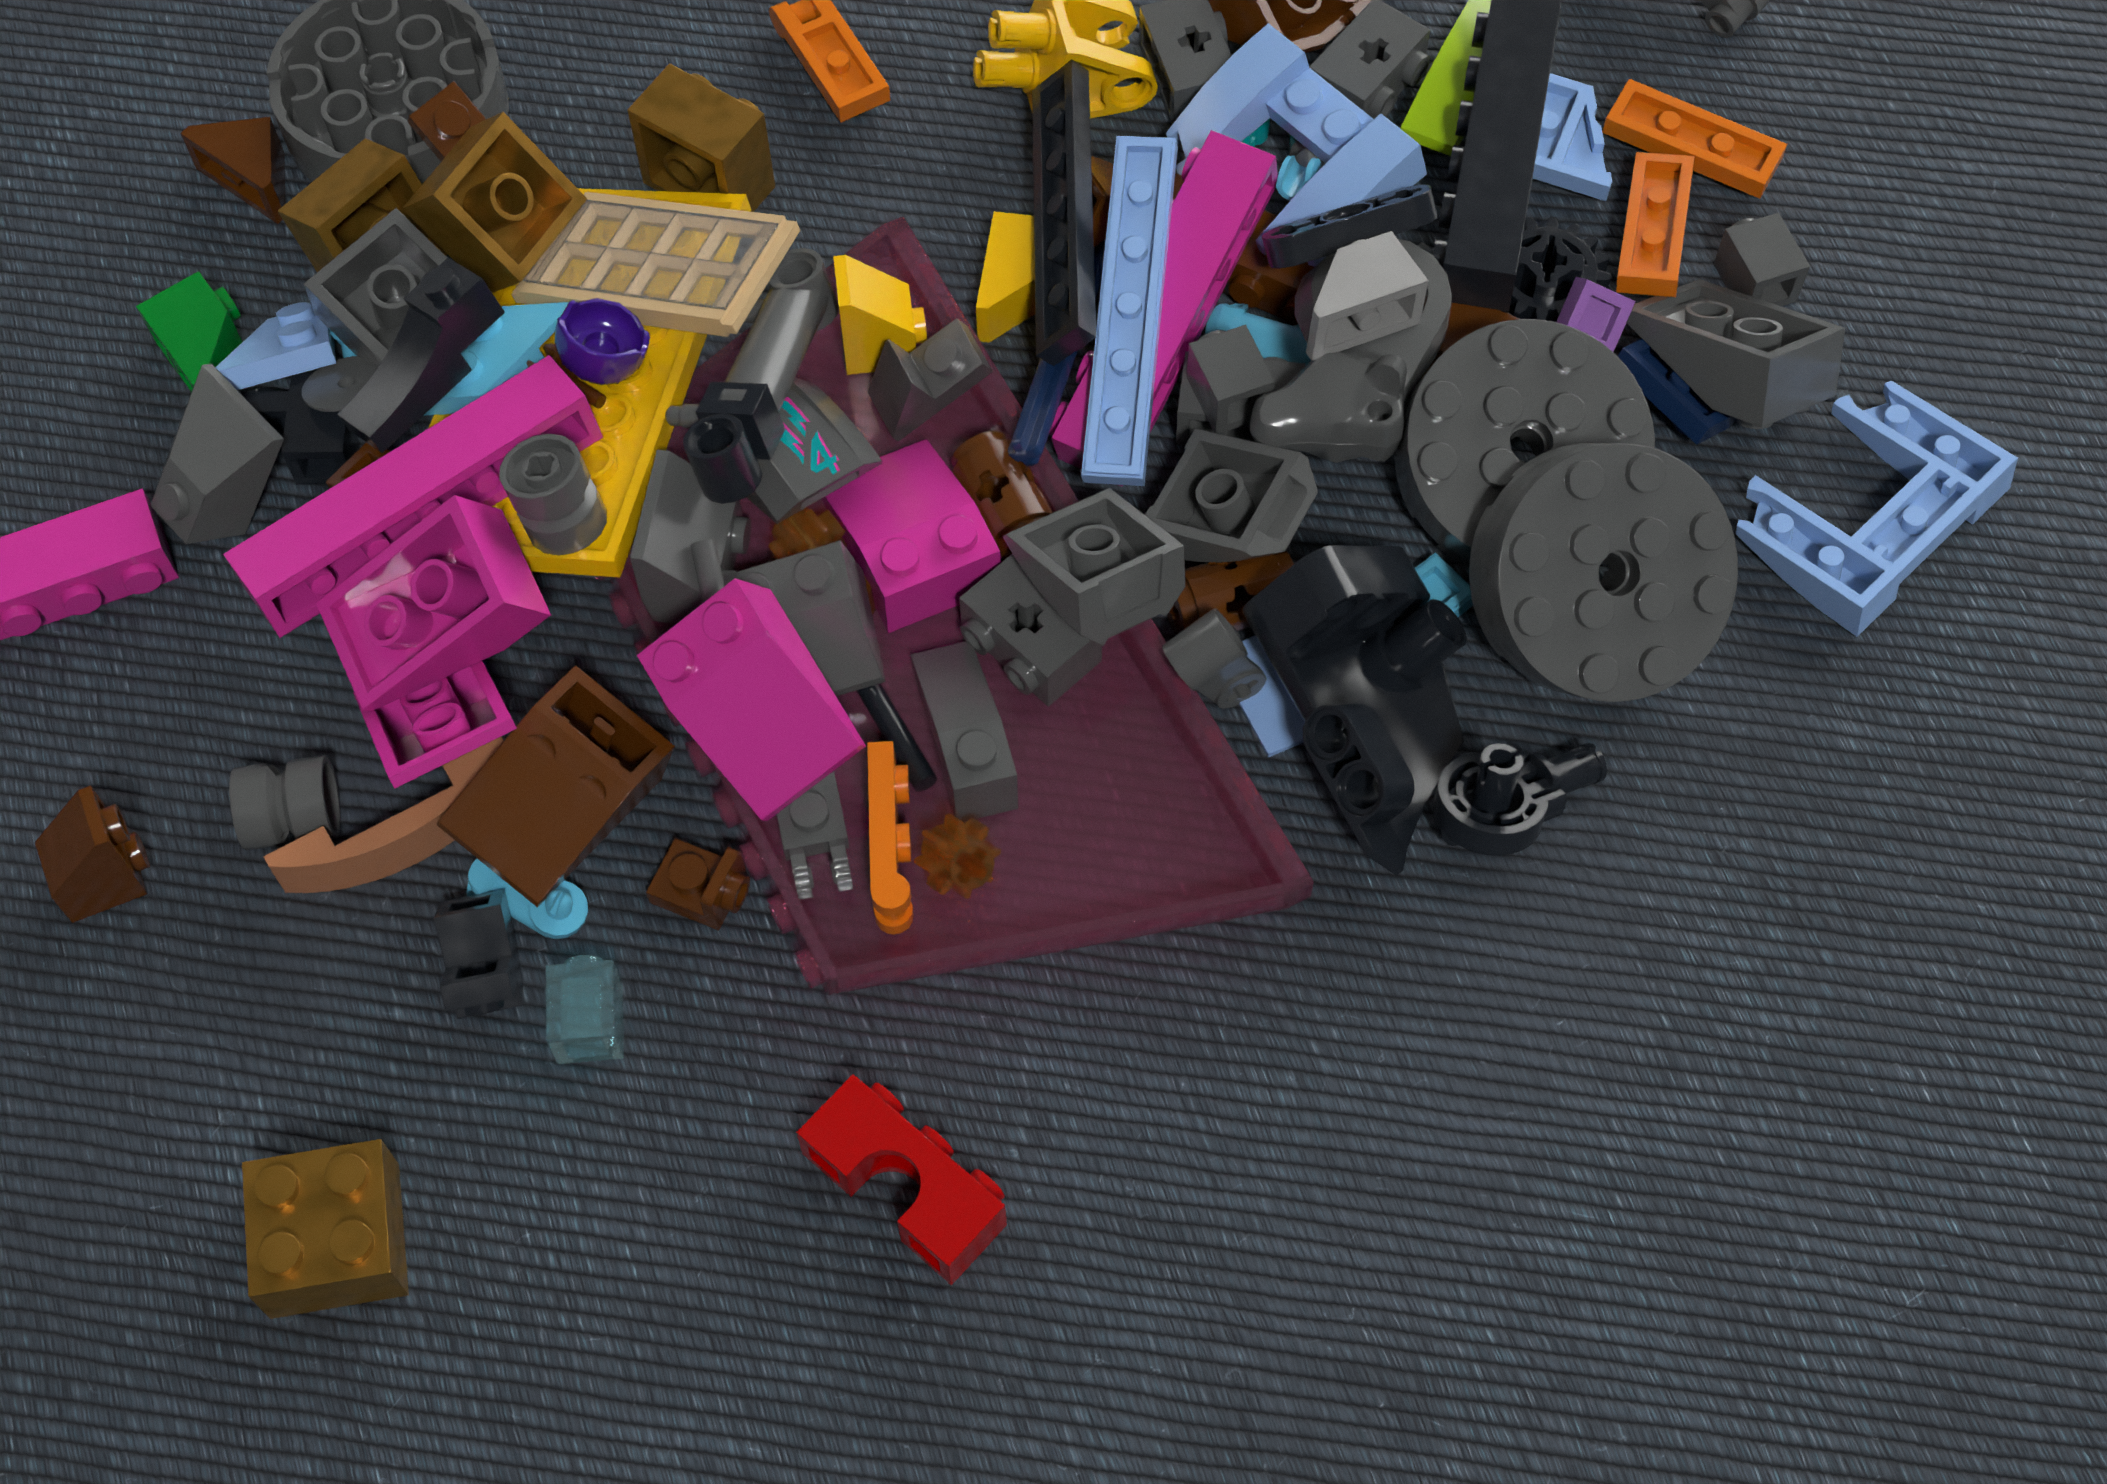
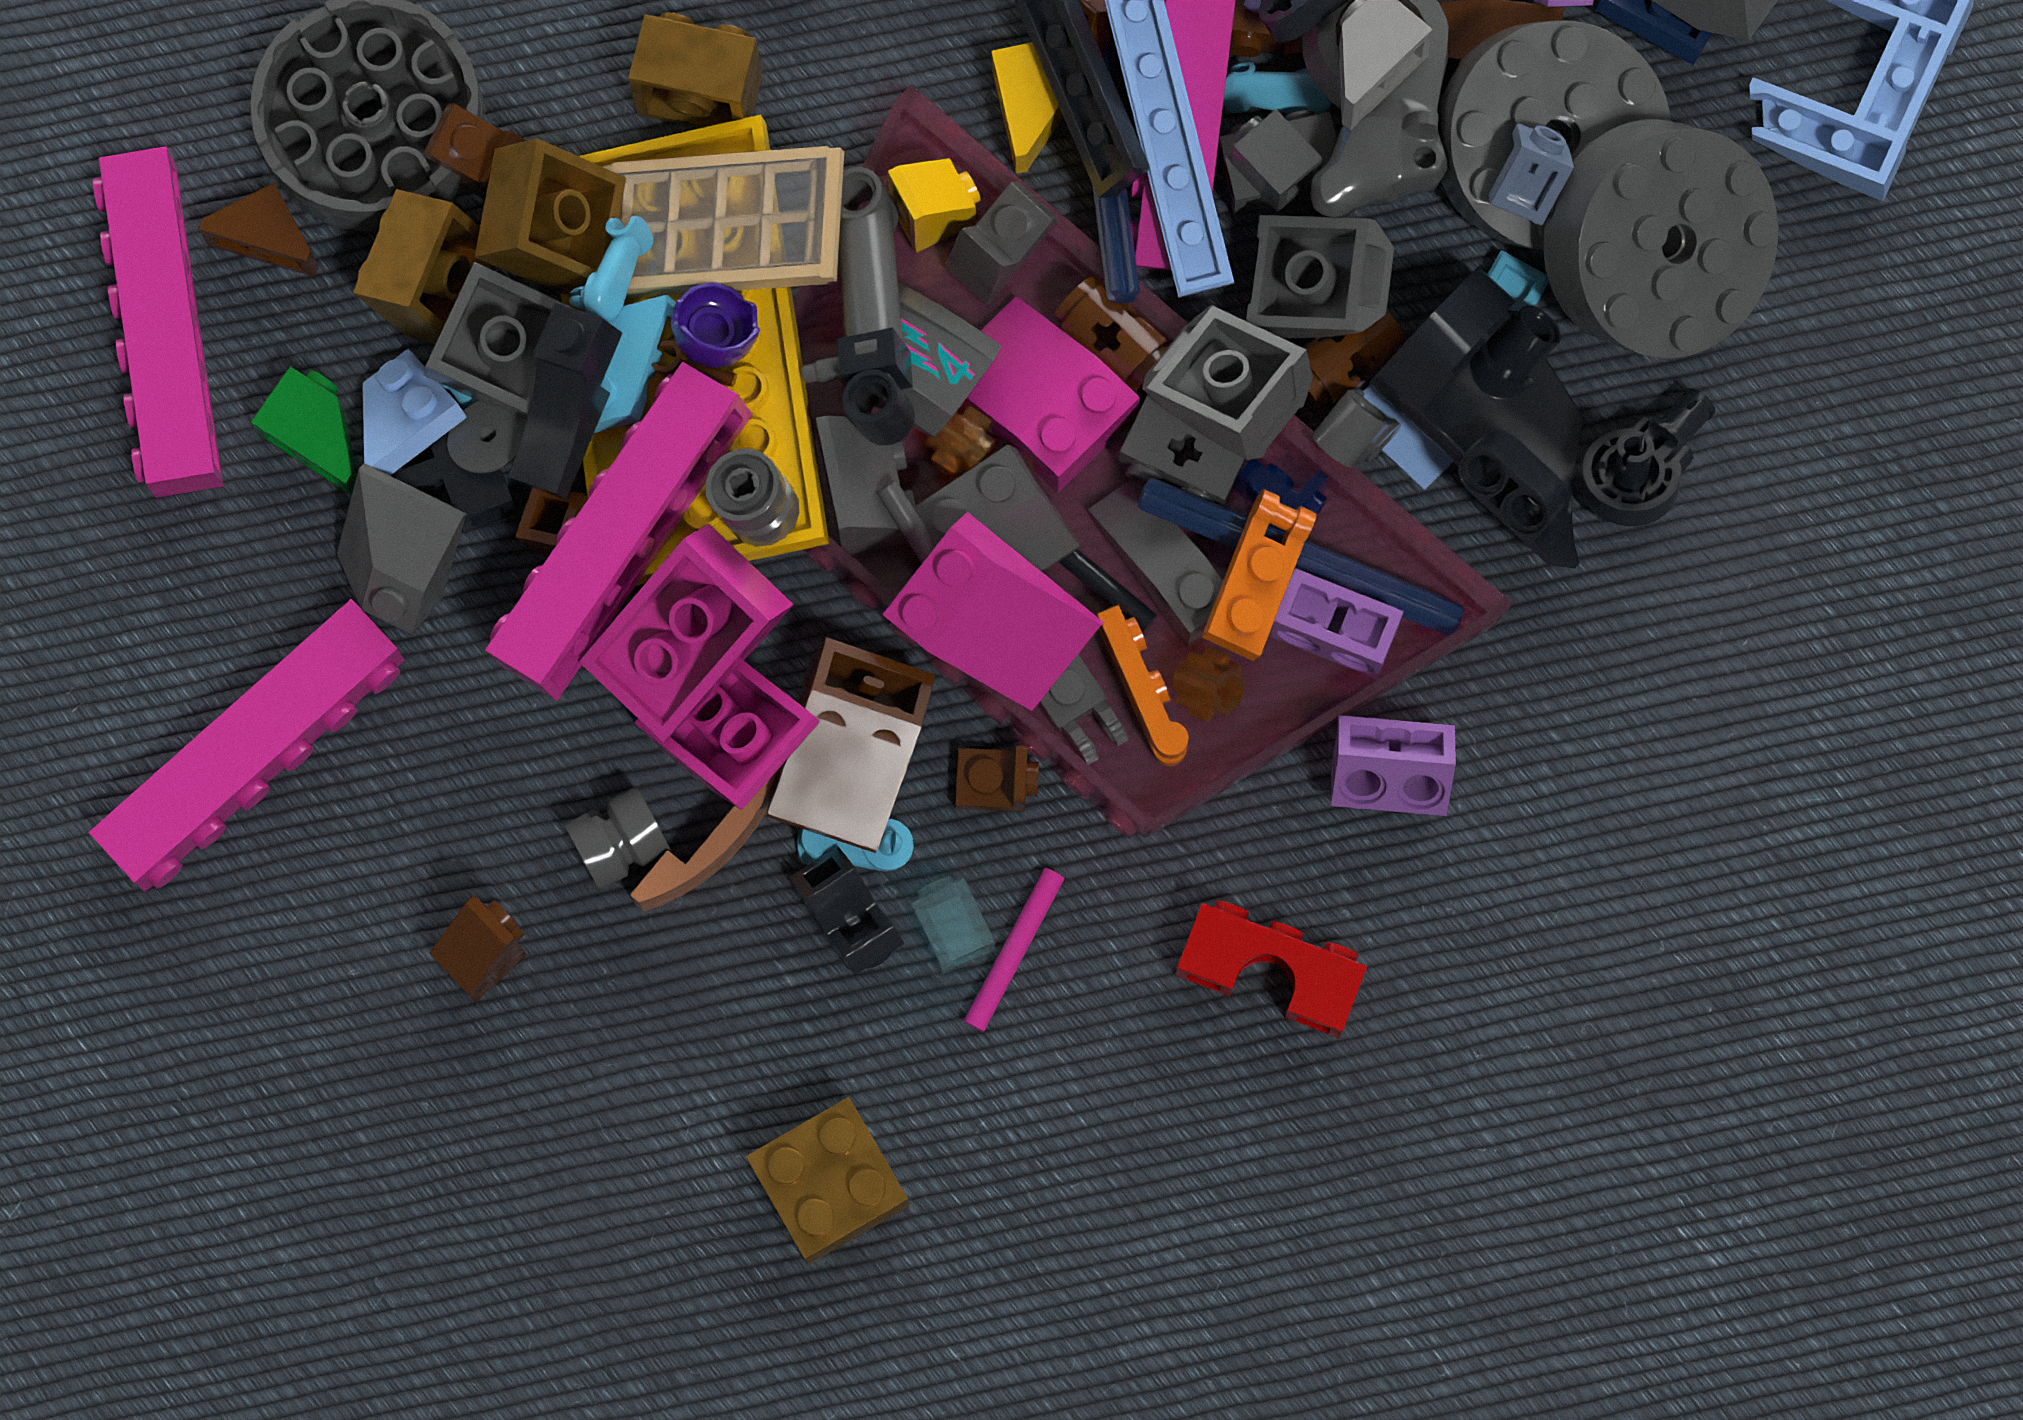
camera: 20 degrees left, 15 degrees up
(107, 211) = (159, 322): none -> dark pink brick
(525, 270) = (608, 286): none -> medium azure piece
(640, 1063) = (1013, 950): none -> dark pink bar
(1046, 756) = (1258, 576): none -> orange plate
(1107, 763) = (1227, 526): none -> dark blue axle
(1109, 702) = (1272, 478): none -> clear blue bracket
(1115, 838) = (1336, 623): none -> medium lavender brick
(1124, 996) = (1393, 765): none -> medium lavender brick
(1485, 456) = (1532, 173): none -> sand blue bracket

